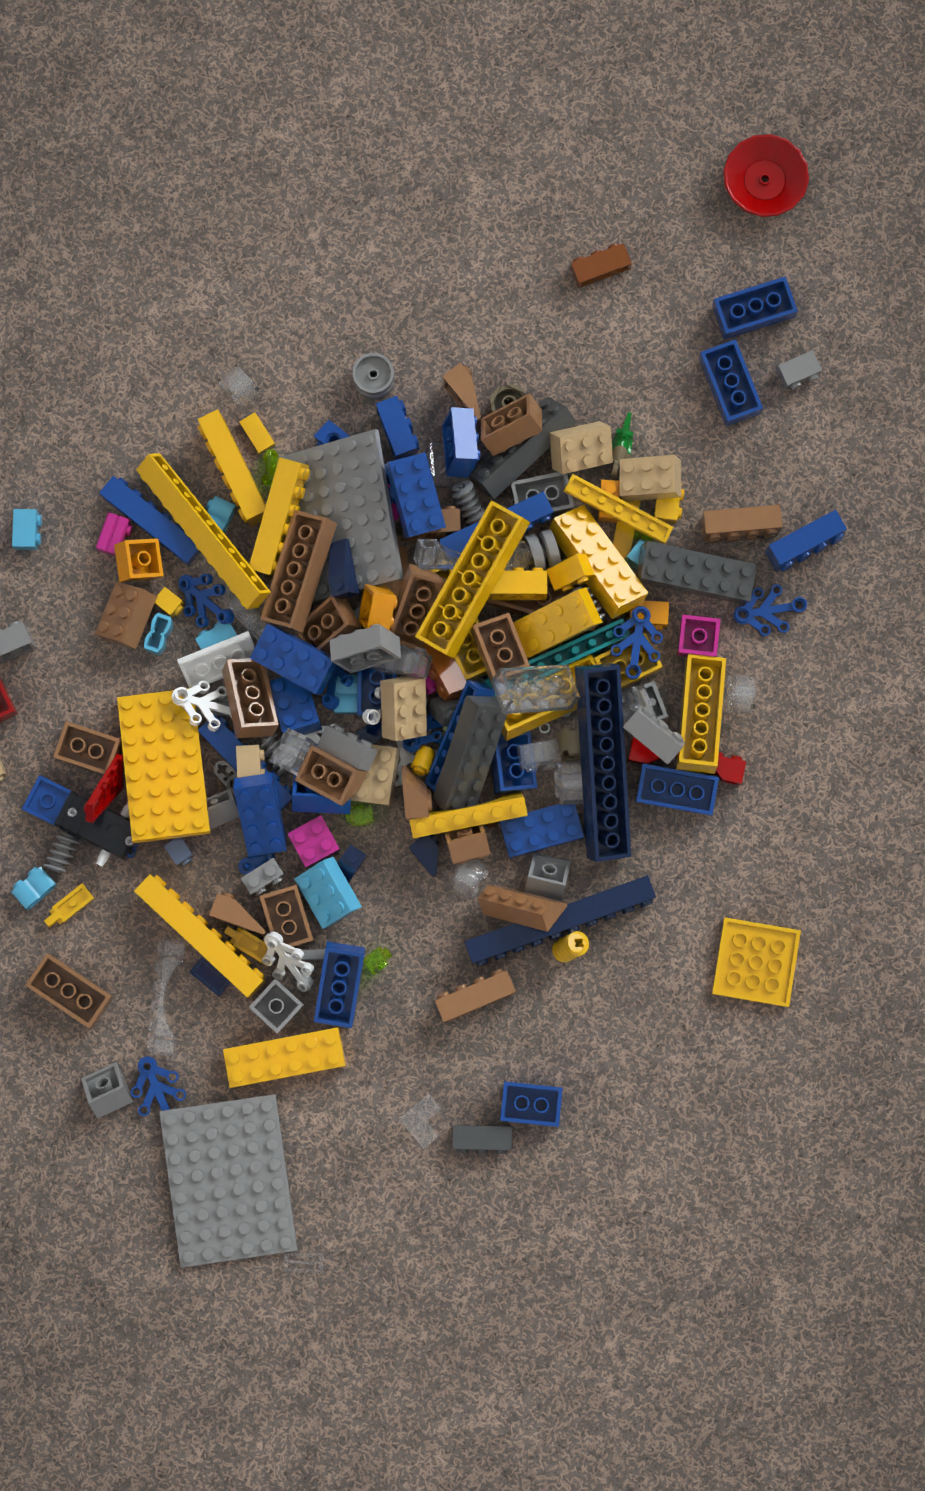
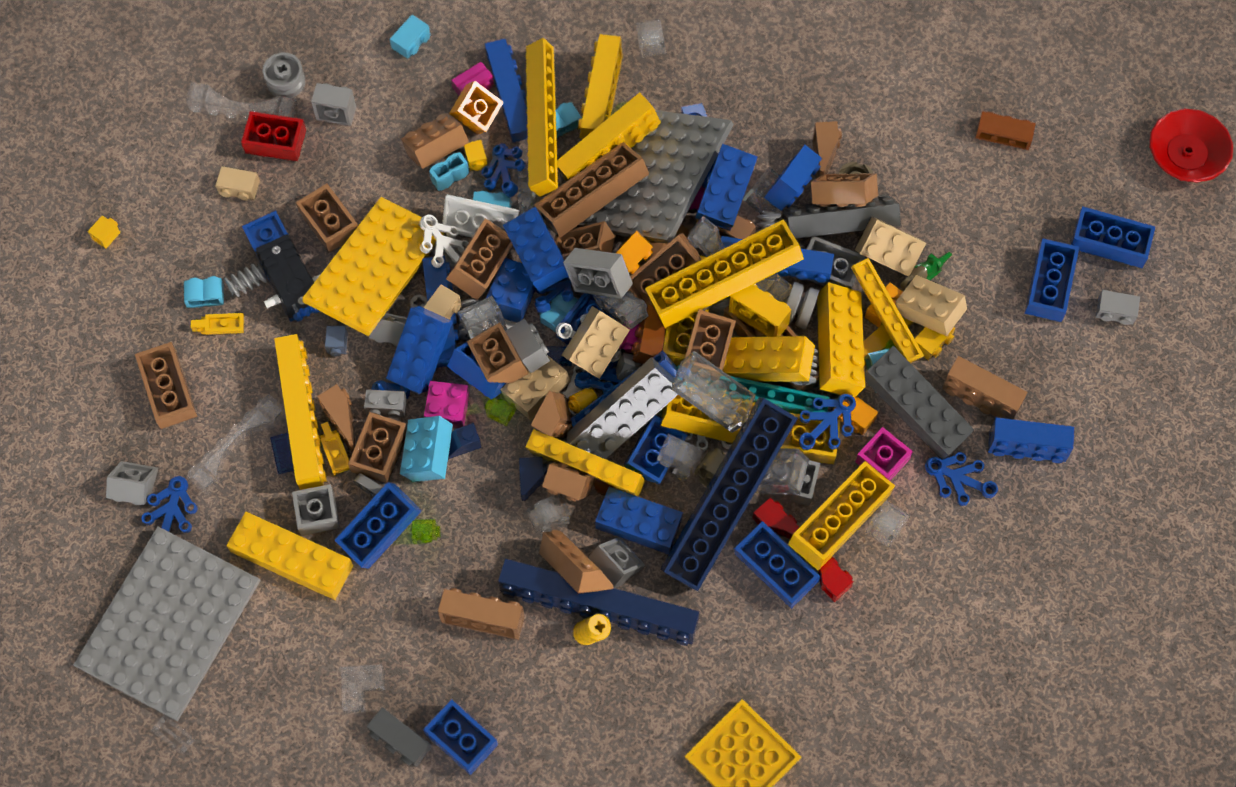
camera: 35 degrees right, 15 degrees down
(106, 790) = (313, 250): red wing -> none
(257, 433) = (639, 80): yellow tile -> none
(274, 942) = (351, 477): white plant -> none
(342, 571) = (624, 210): dark blue slope -> none
(373, 365) = (761, 95): light grey wheel -> none
(397, 428) = (754, 135): blue brick -> none
(569, 783) = (688, 493): clear brick -> none
(570, 572) = (814, 326): yellow brick -> none
(654, 734) = (787, 496): light grey brick -> none

